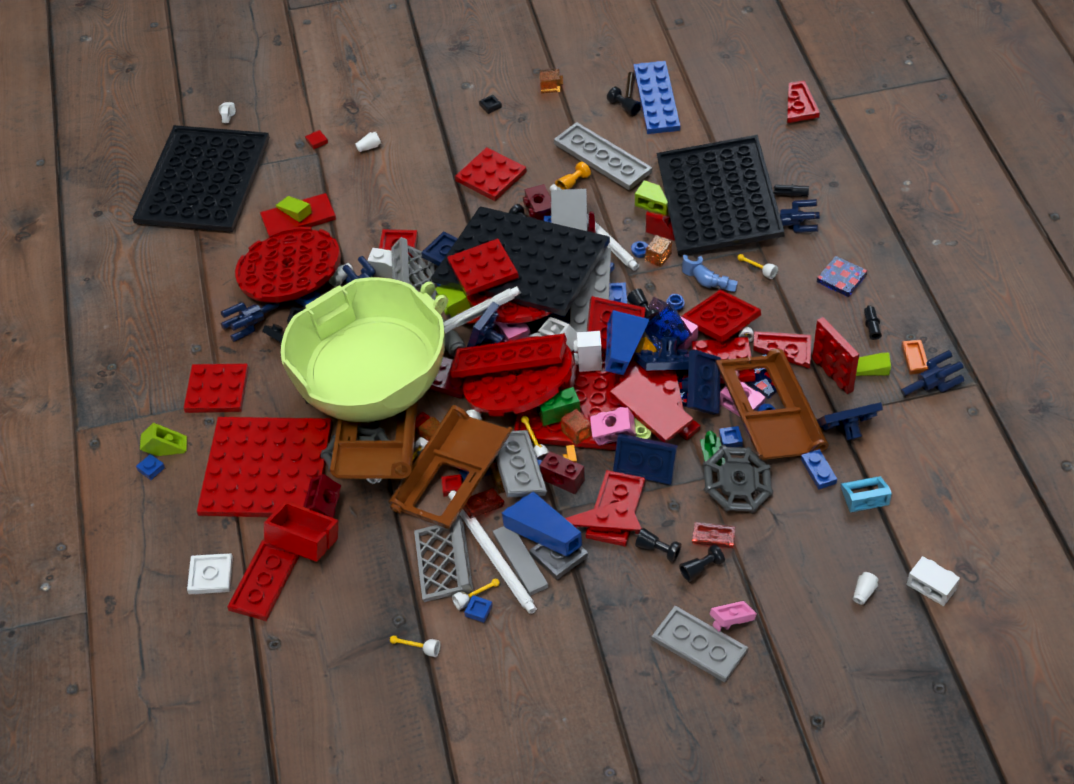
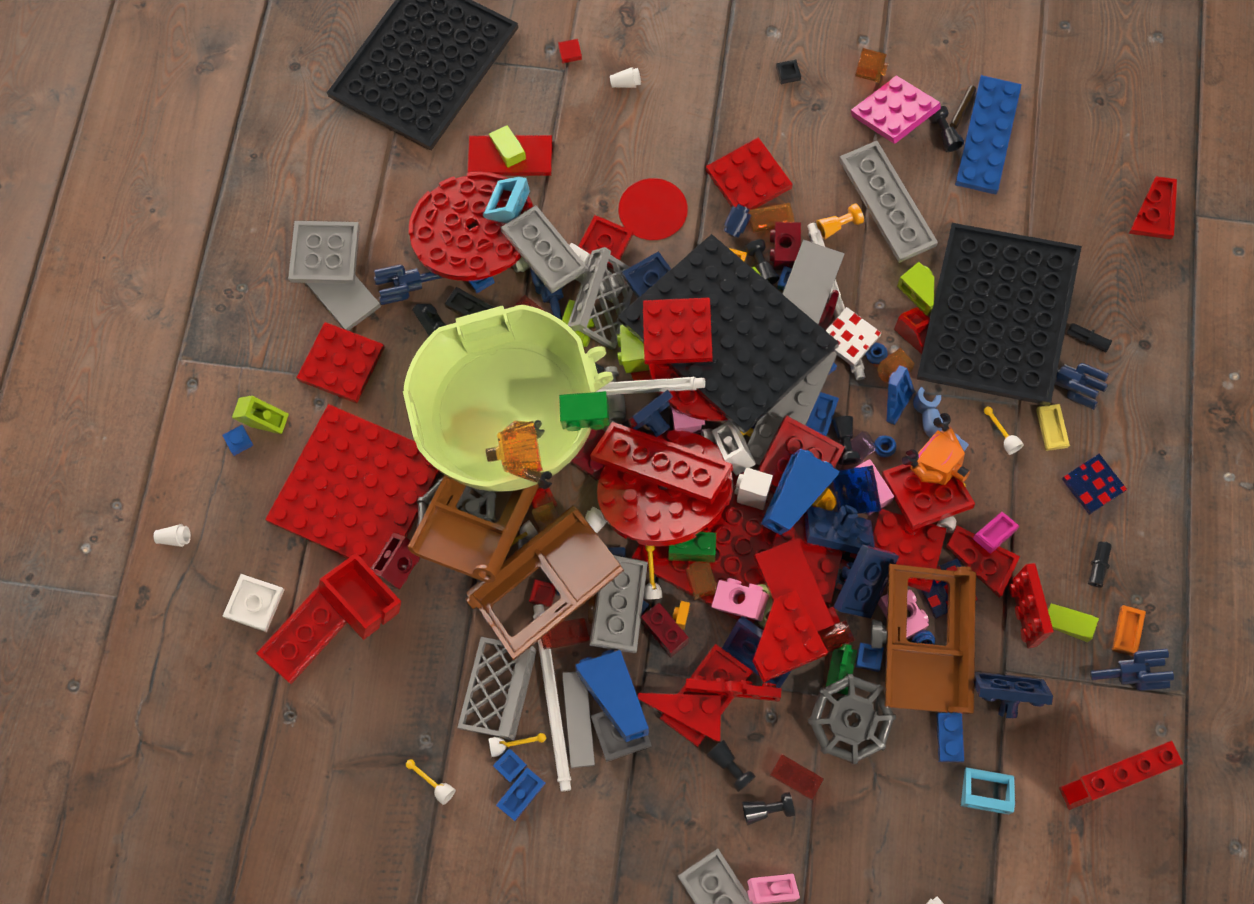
camera: 20 degrees right, 20 degrees up
(121, 548) = (175, 535): none -> white cone
(173, 317) = (324, 252): none -> light grey plate
(193, 340) = (346, 302): none -> light grey tile
(315, 241) = (515, 204): none -> medium azure tile
(353, 255) = (544, 249): none -> light grey tile
(397, 367) = (520, 452): none -> clear orange torso
(426, 215) = (653, 209): none -> red sticker
(435, 323) = (584, 411): none -> green brick
(495, 198) = (737, 220): none -> dark blue brick
(496, 625) = (521, 794): none -> blue plate
(516, 192) = (765, 217): none -> clear orange plate
(581, 99) = (895, 109): none -> plate
(620, 240) = (853, 335): none -> white tile
(636, 489) = (728, 688): none -> red hinge
(662, 433) = (787, 639): none -> red plate
(669, 263) = (899, 393): none -> blue wing
(693, 434) = (836, 635): none -> clear red plate
(719, 289) = (939, 457): none -> orange torso
(729, 415) = (878, 634): none -> dark grey plate
(785, 326) = (996, 532): none -> dark pink tile
(793, 252) = (1052, 427): none -> light yellow tile
(959, 434) = (1121, 775): none -> red panel

